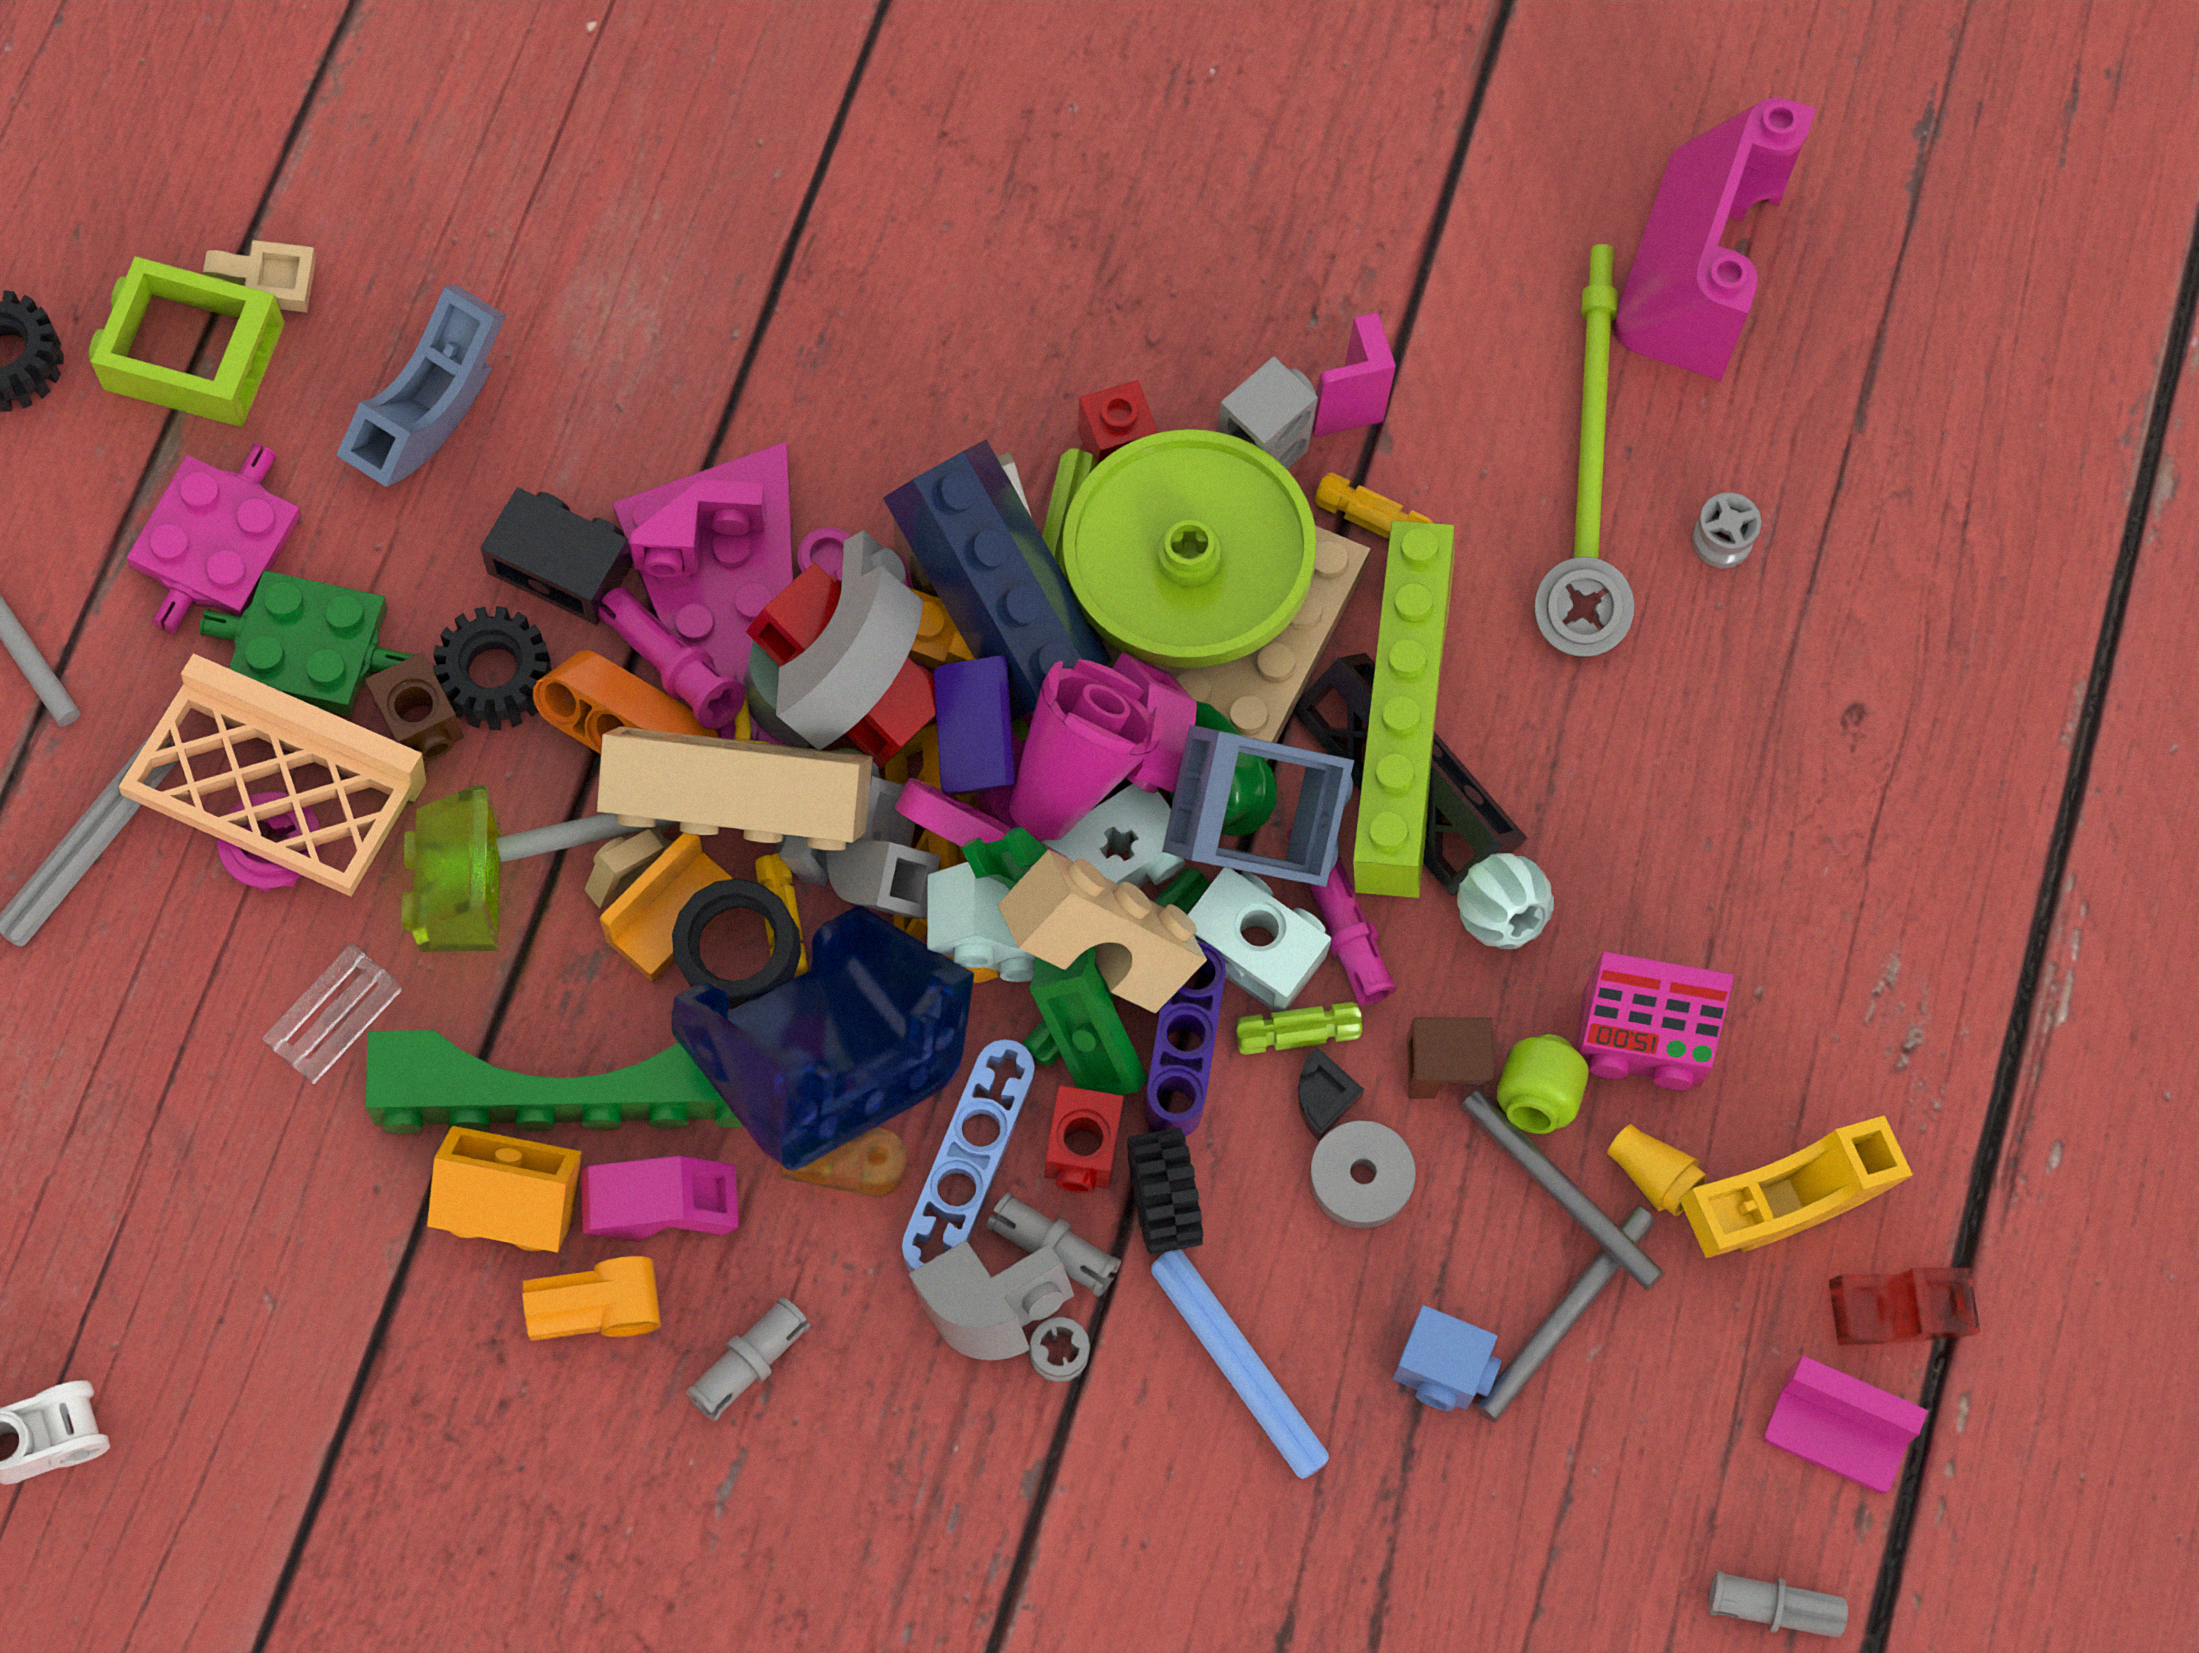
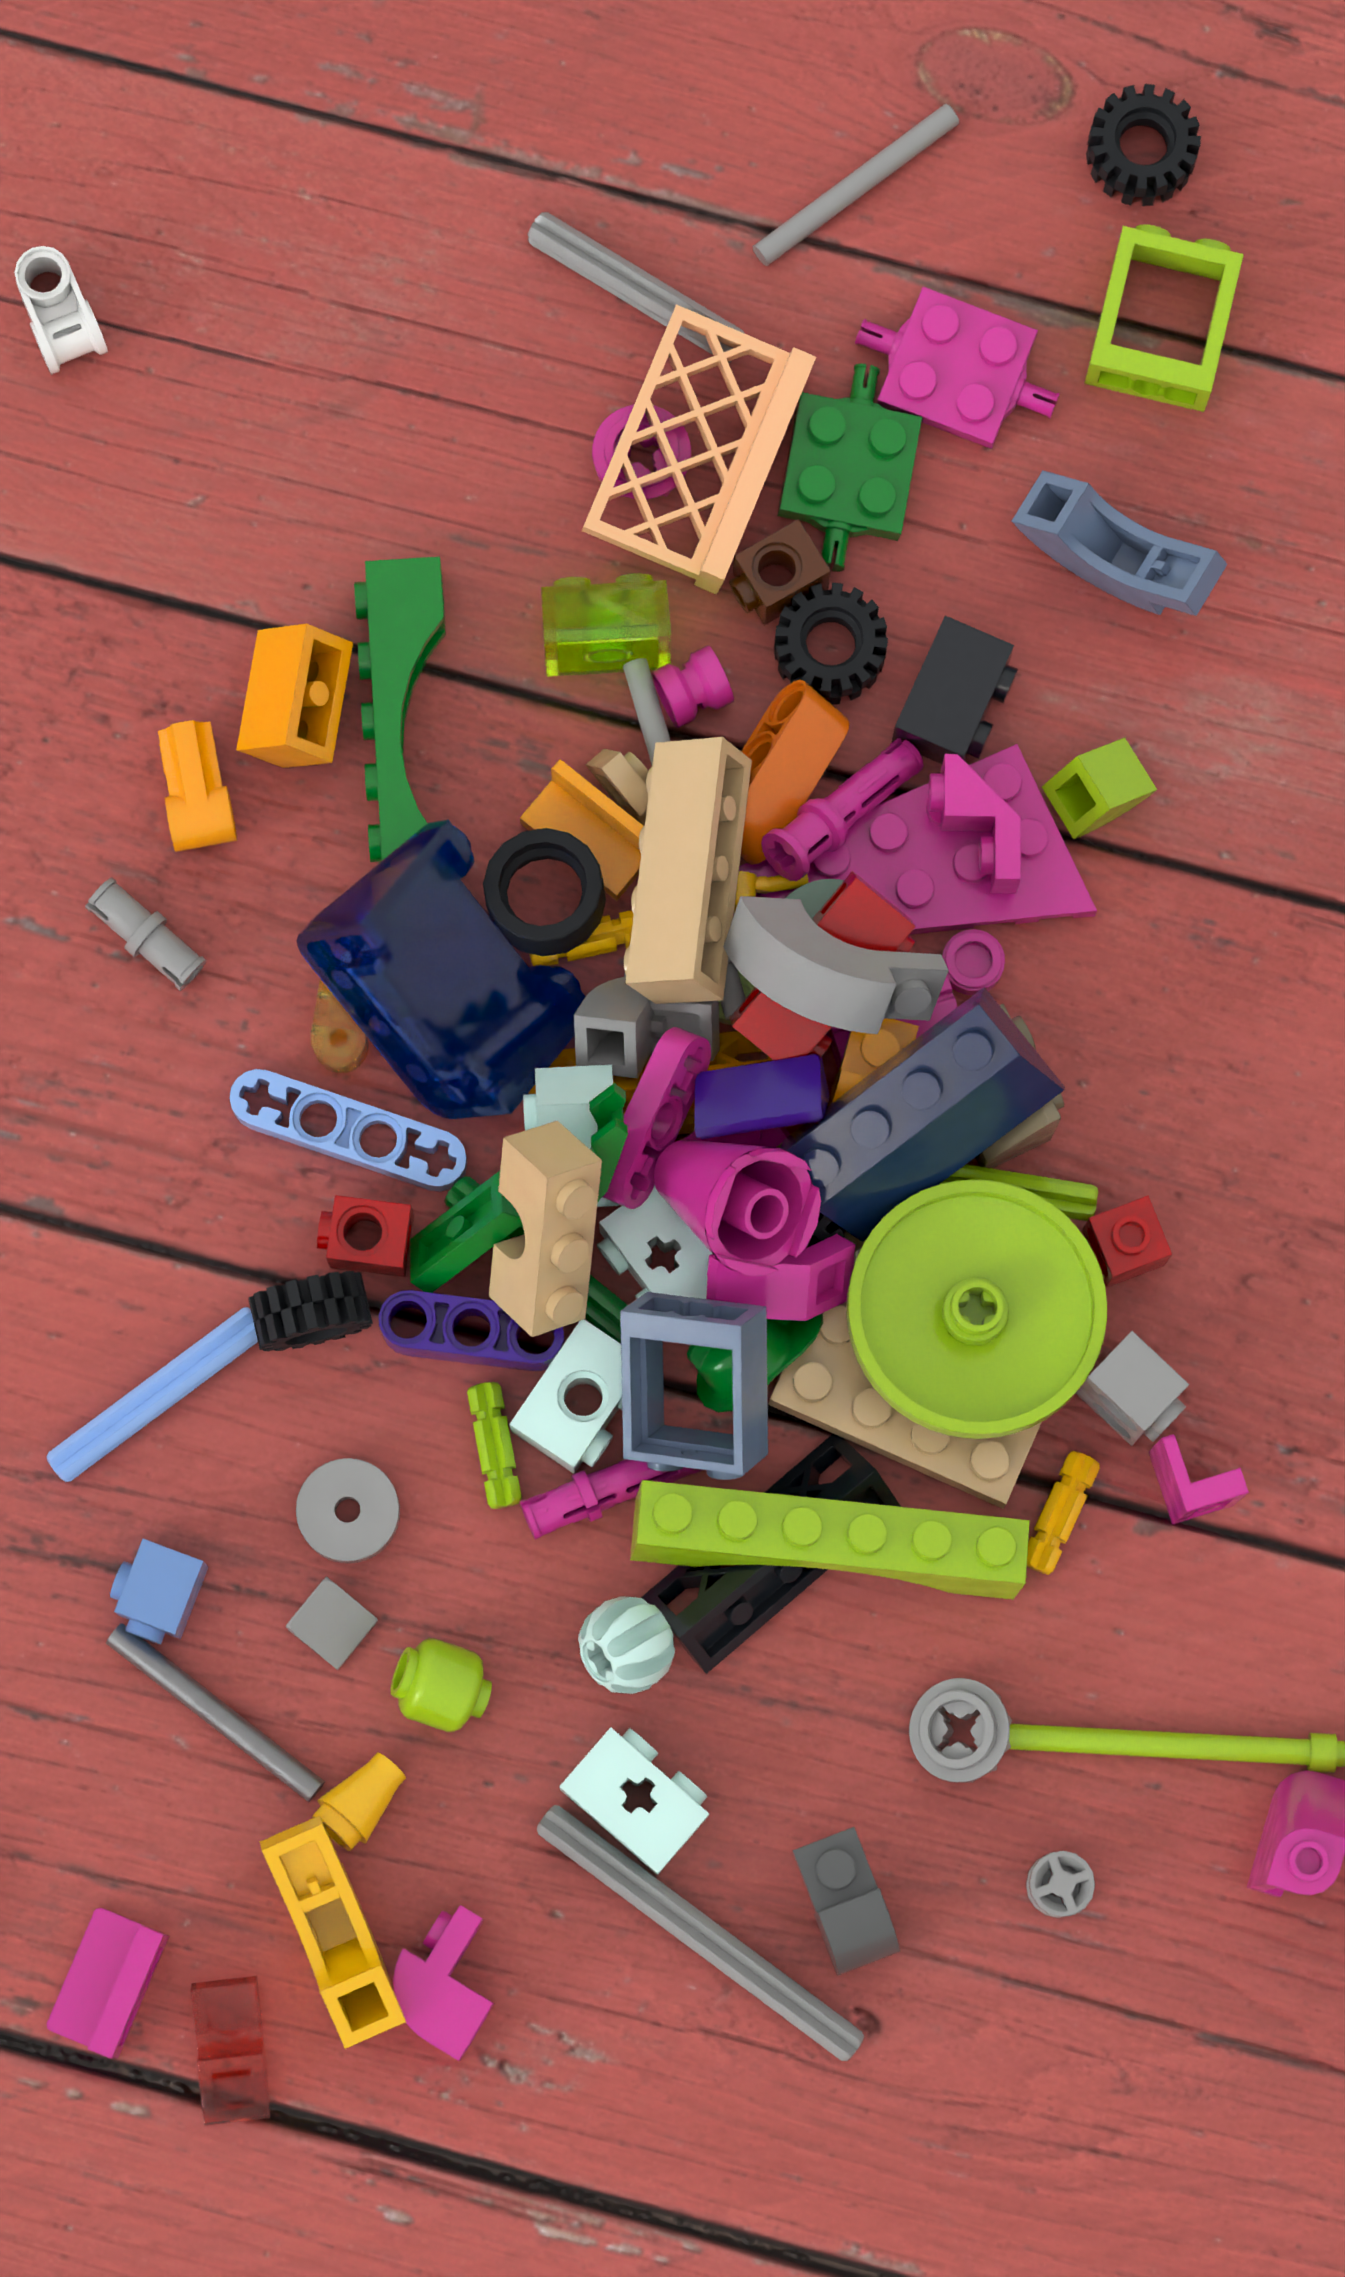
camera: 90 degrees right, 10 degrees up
(271, 268) = (1246, 391): tan plate -> none
(349, 1031) = (513, 559): clear tile -> none
(526, 795) = (698, 684): none -> dark pink wheel
(652, 1194) = (295, 840): dark pink slope -> none
(664, 432) = (1098, 787): none -> lime brick
(986, 1313) = (190, 1145): light grey brick -> none
(1034, 1230) = (265, 1212): light grey pin -> none
(1079, 1346) = (158, 1206): light grey bush -> none
(1325, 1093) = (430, 1473): black tile -> none
(1448, 1054) = (464, 1591): reddish brown panel -> none
(1476, 1194) = (331, 1623): none -> light grey slope
(1563, 1190) = (333, 1706): flat silver bar -> none
(1652, 1020) = (500, 1789): dark pink slope -> none
(1672, 872) = (597, 1790): none -> light aqua brick
(1759, 708) = (846, 1901): none -> dark grey brick
(1787, 842) = (700, 1933): none -> light grey axle
(1862, 1088) = (432, 2000): none -> dark pink brick

